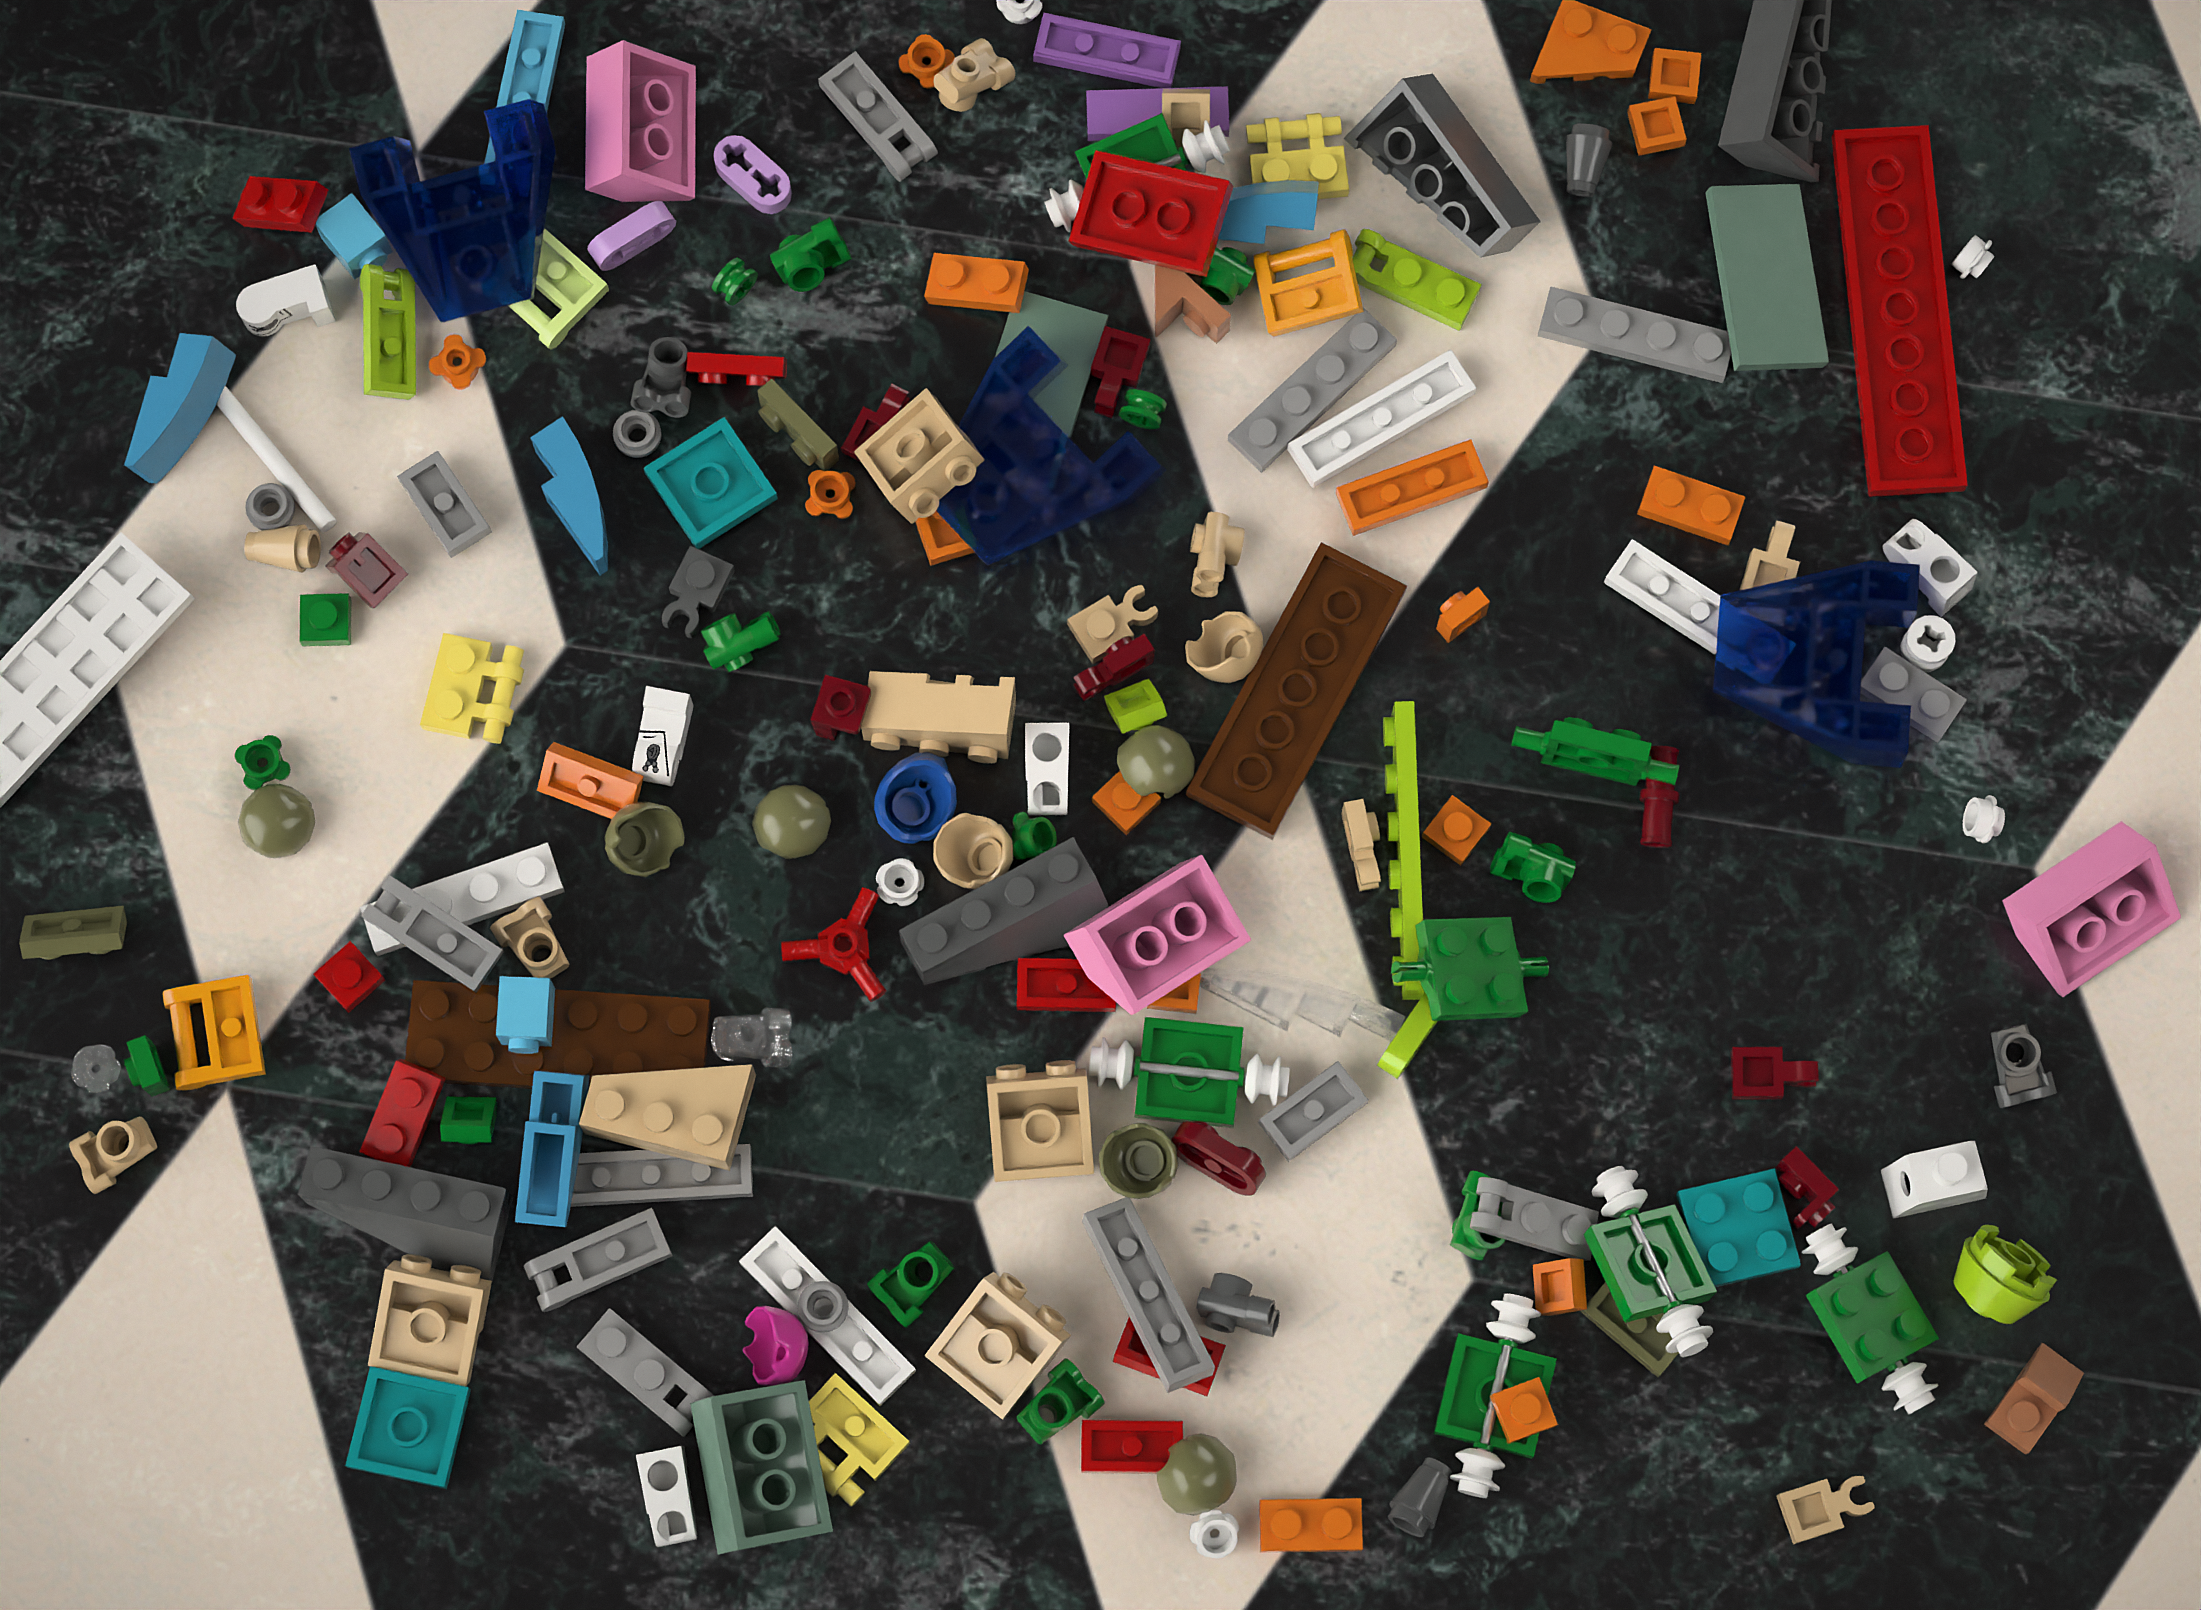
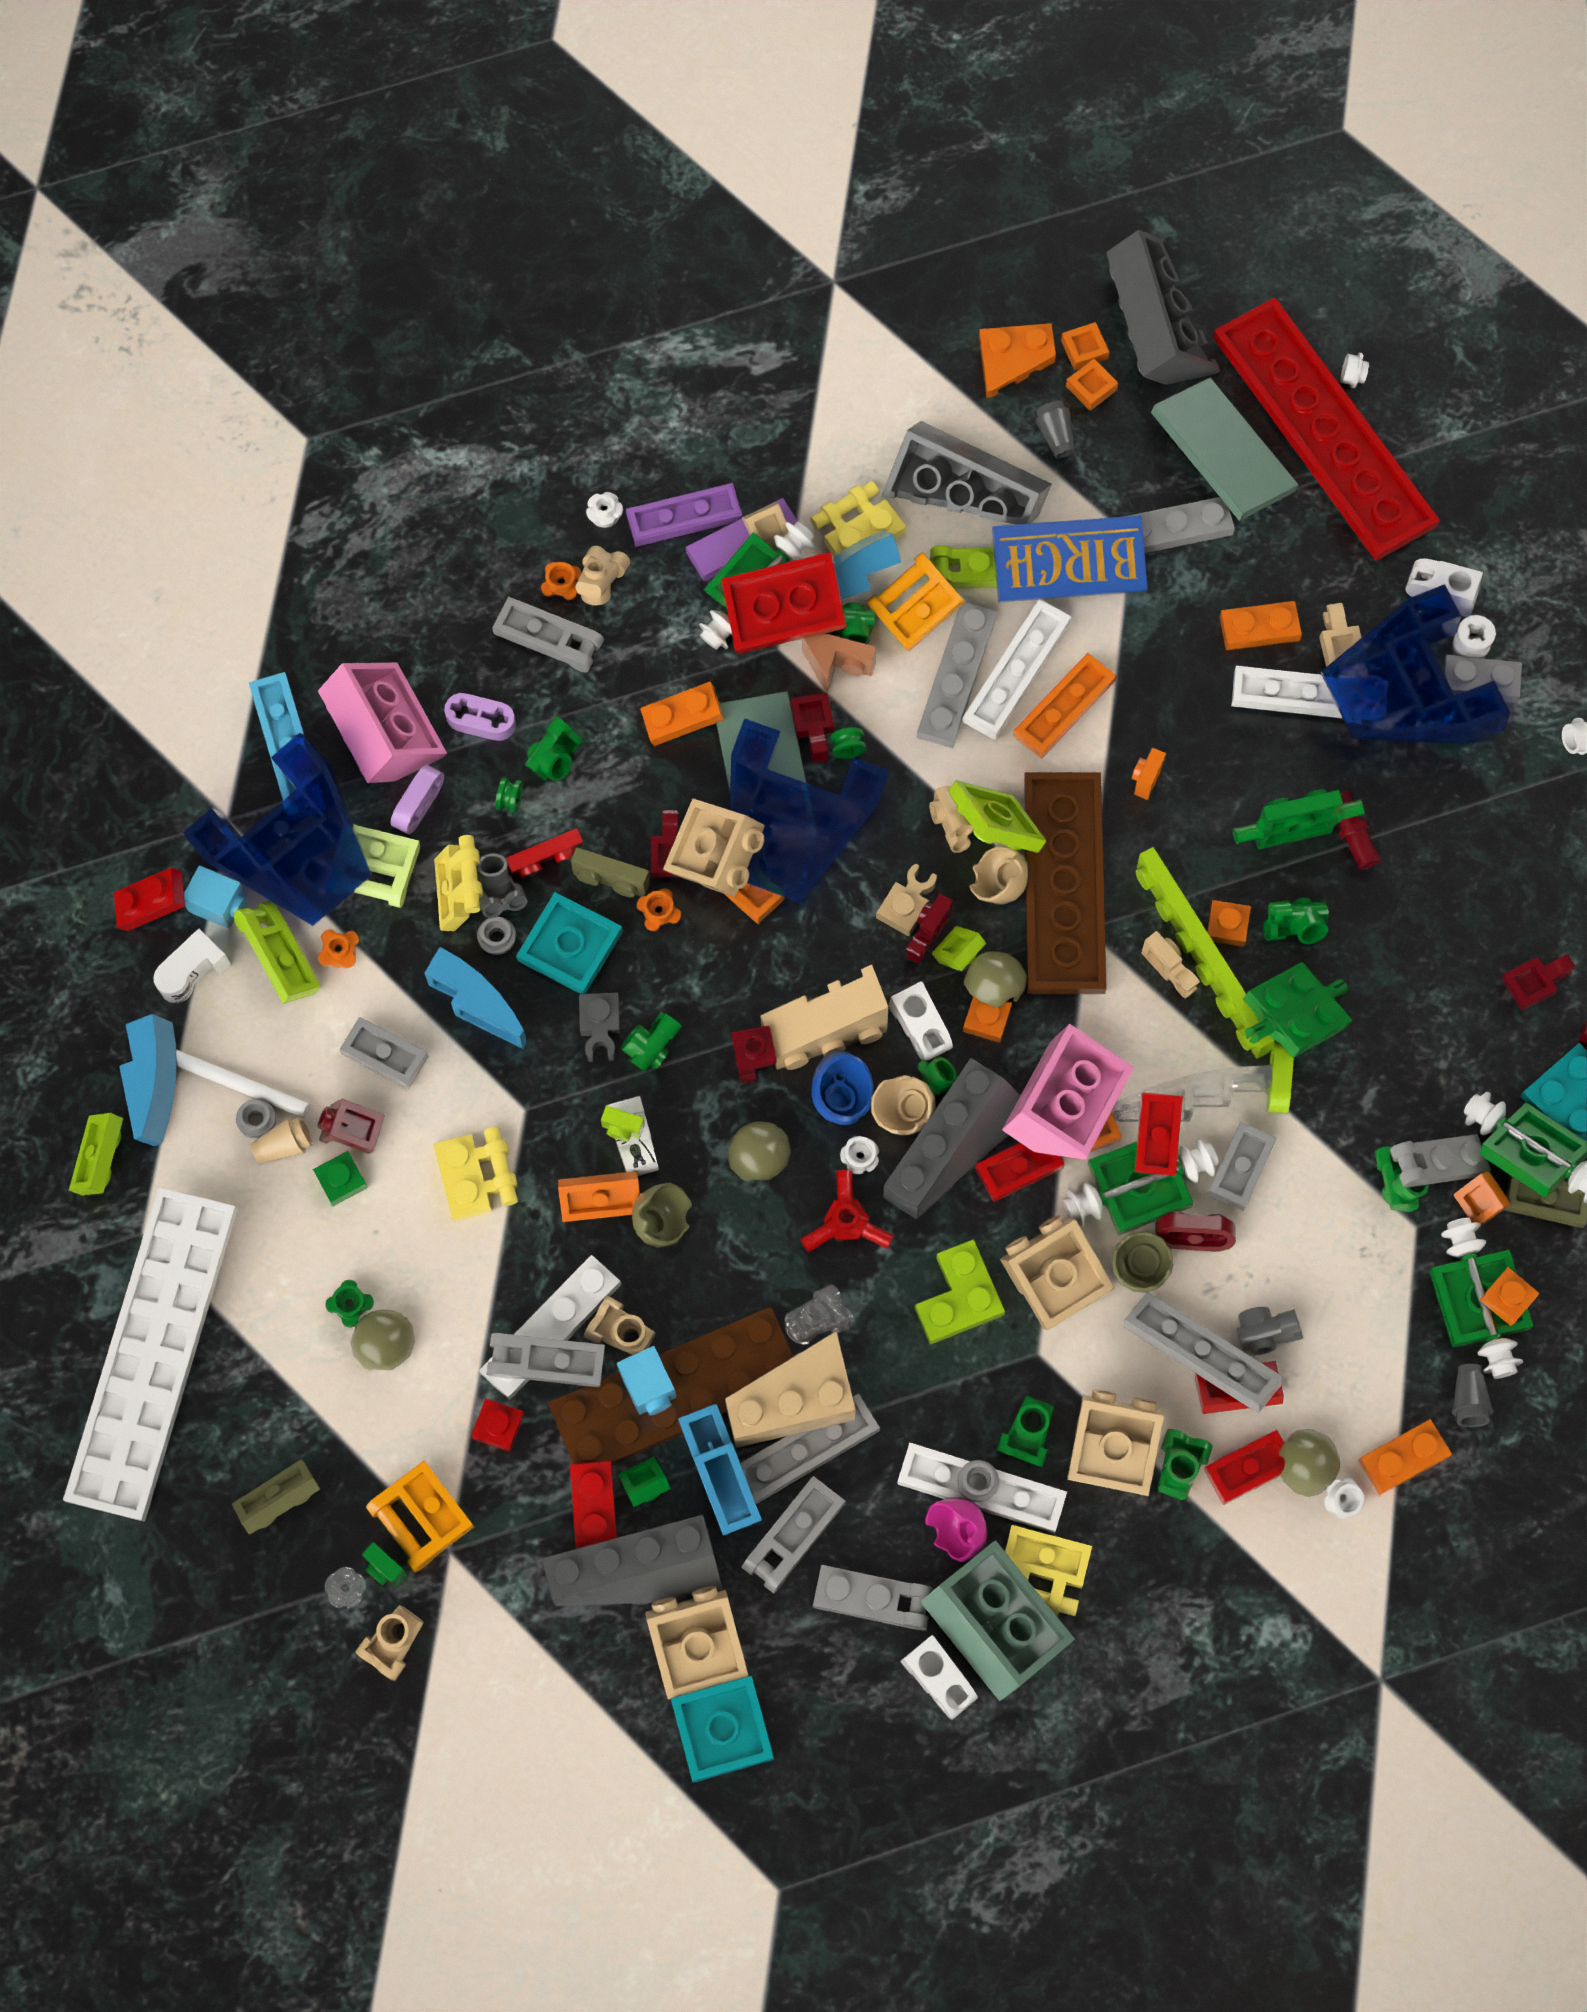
camera: 25 degrees left, 5 degrees down
(85, 453) = (96, 1154): none -> lime plate
(622, 353) = (457, 883): none -> light yellow plate
(648, 717) = (622, 1124): none -> lime plate
(932, 1104) = (970, 1298): none -> lime plate
(1232, 1028) = (1158, 1134): none -> red plate
(1254, 578) = (996, 817): none -> lime plate
(1510, 320) = (1069, 559): none -> blue tile

